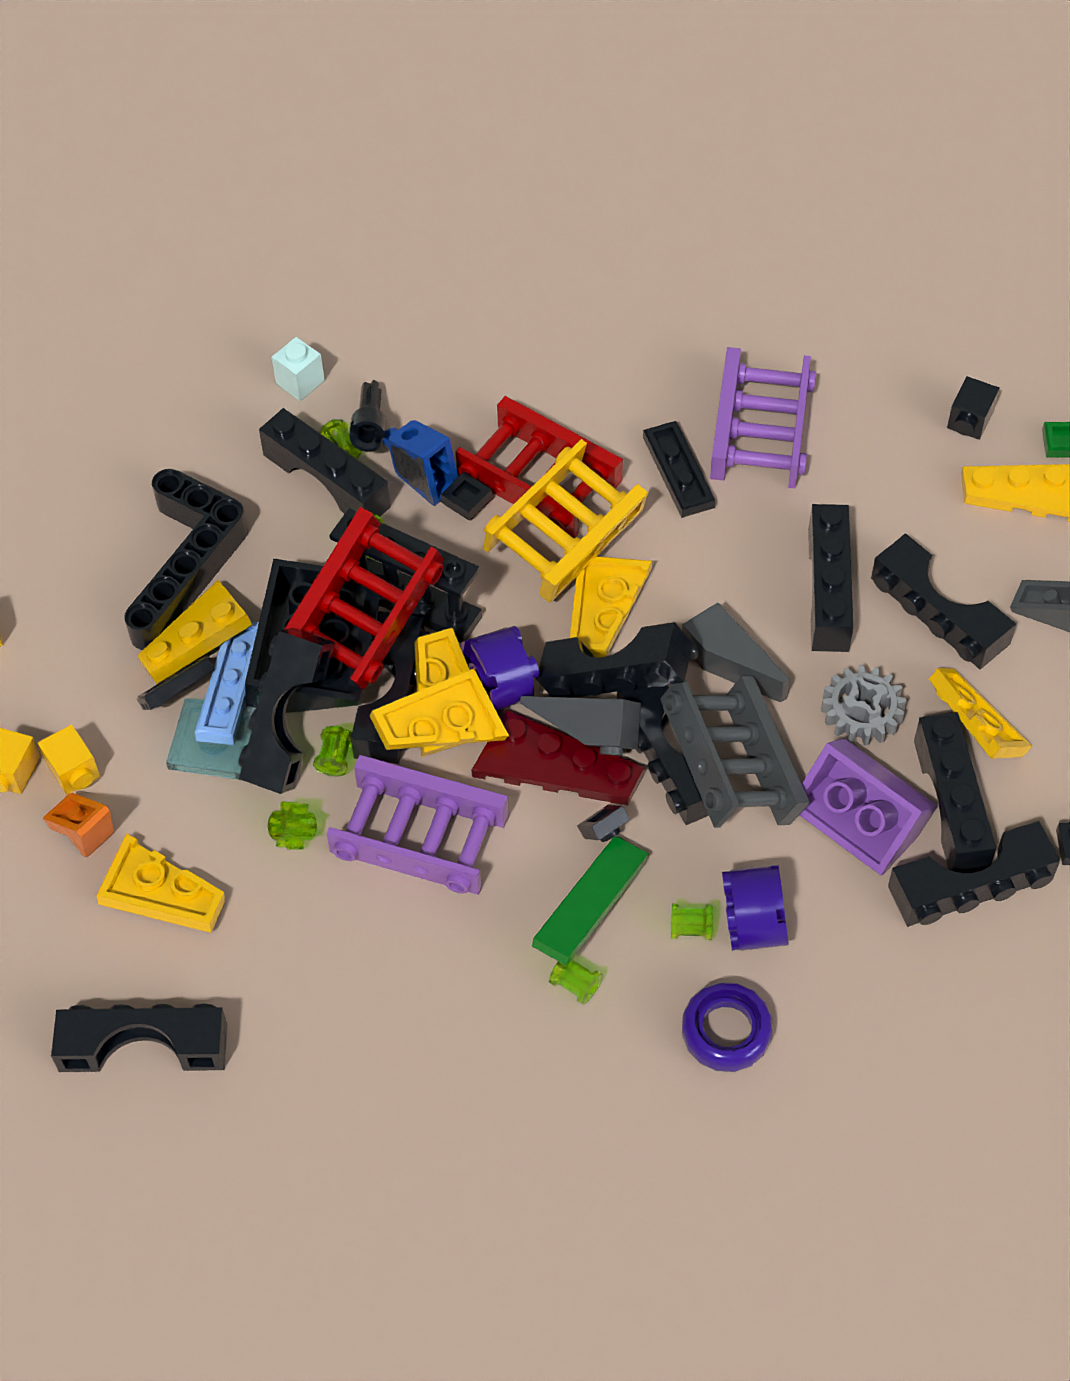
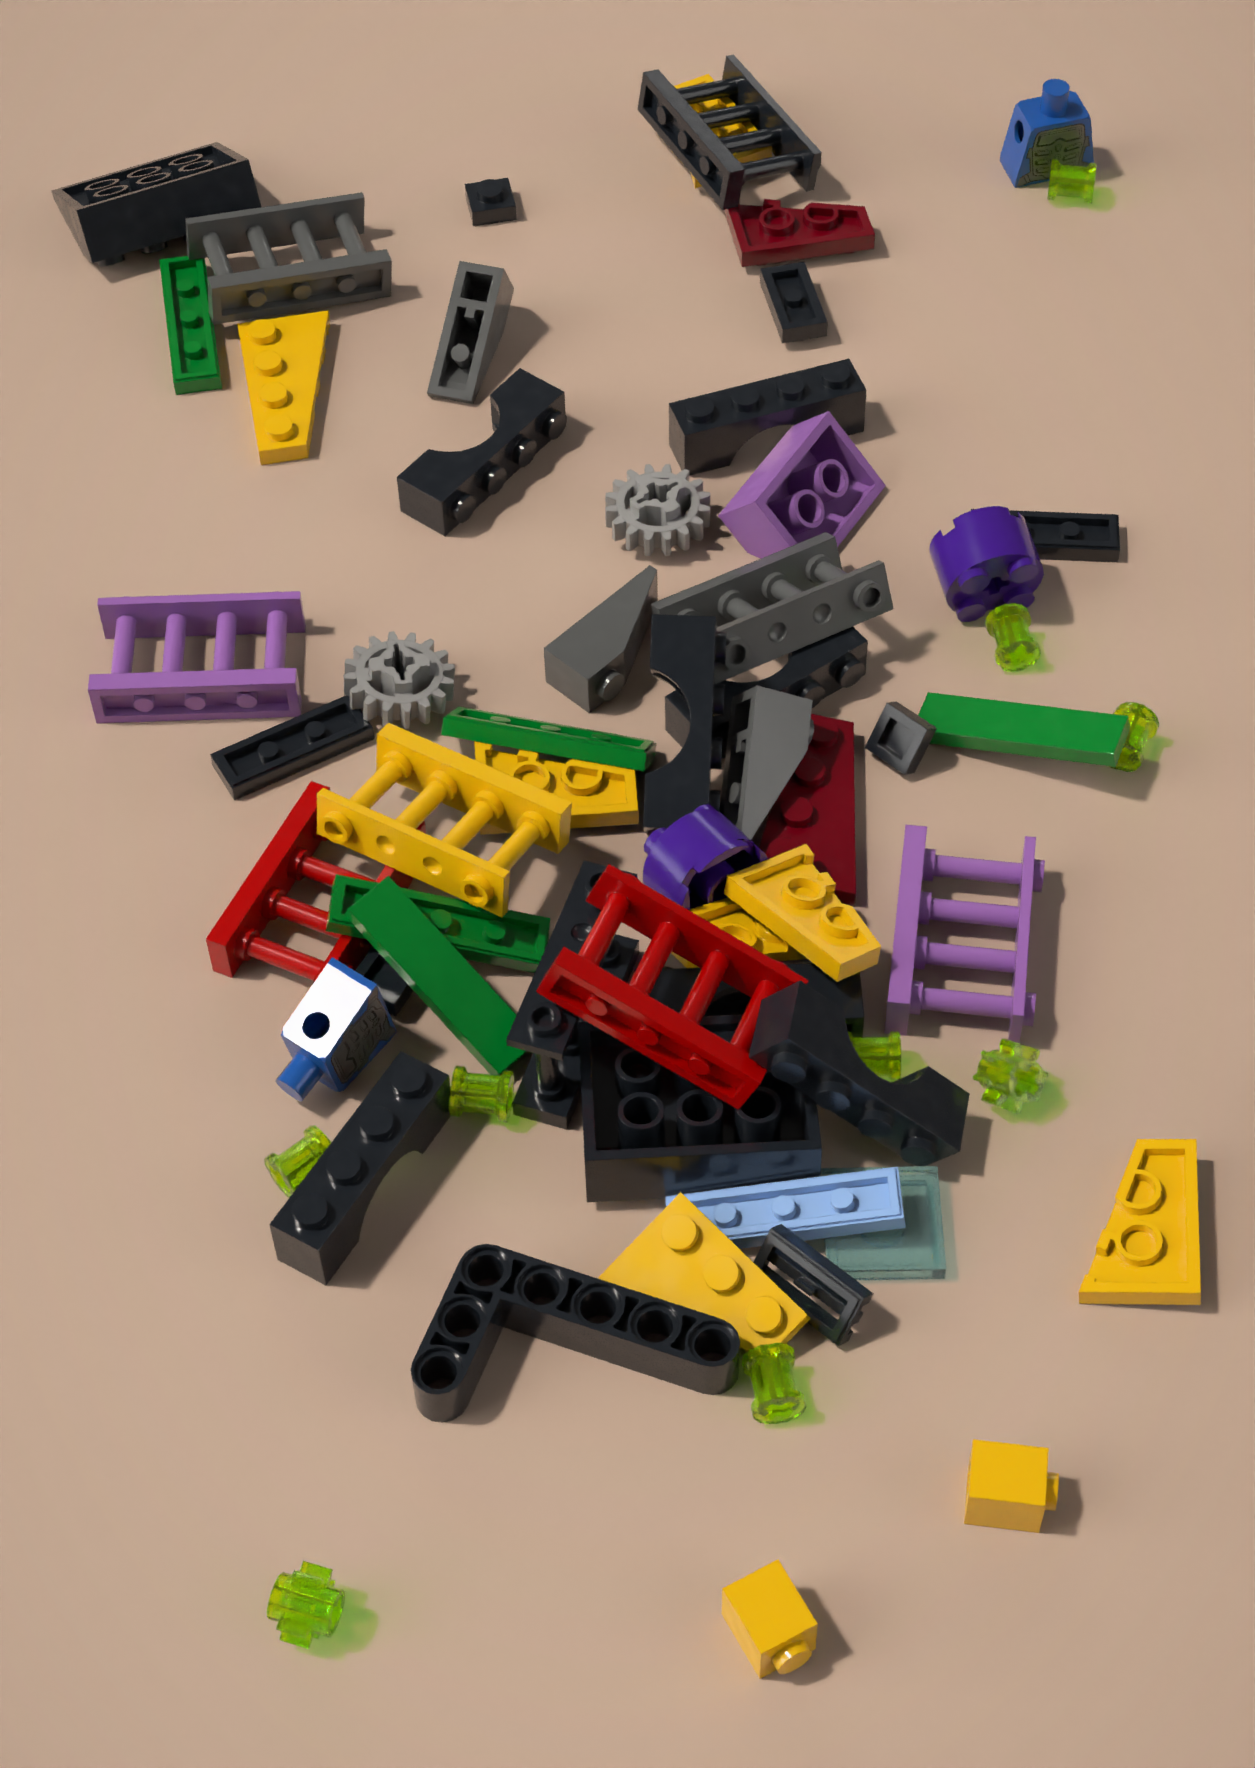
camera: 100 degrees left, 5 degrees down
(57, 418) = (306, 1604): none -> clear neon green gear
(69, 759) = (981, 1397): yellow brick -> none
(83, 821) = (1086, 1346): orange slope -> none
(117, 655) = (773, 1383): none -> clear neon green bush
(298, 368) = (160, 1247): light aqua brick -> none
(368, 422) = (282, 1107): black piece -> none
(458, 501) = (437, 974): none -> green tile
(496, 495) = (477, 934): none -> green tile
(652, 595) = (549, 738): none -> green tile
(717, 525) = (399, 679): none -> light grey gear
(731, 996) = (1144, 560): dark purple wheel -> none
(806, 978) = (1074, 535): none -> black tile
(830, 578) = (415, 555): black arch -> none
(929, 891) = (904, 430): black arch -> none
(973, 408) = (161, 445): black brick -> none
(981, 719) = (651, 403): yellow wing -> none

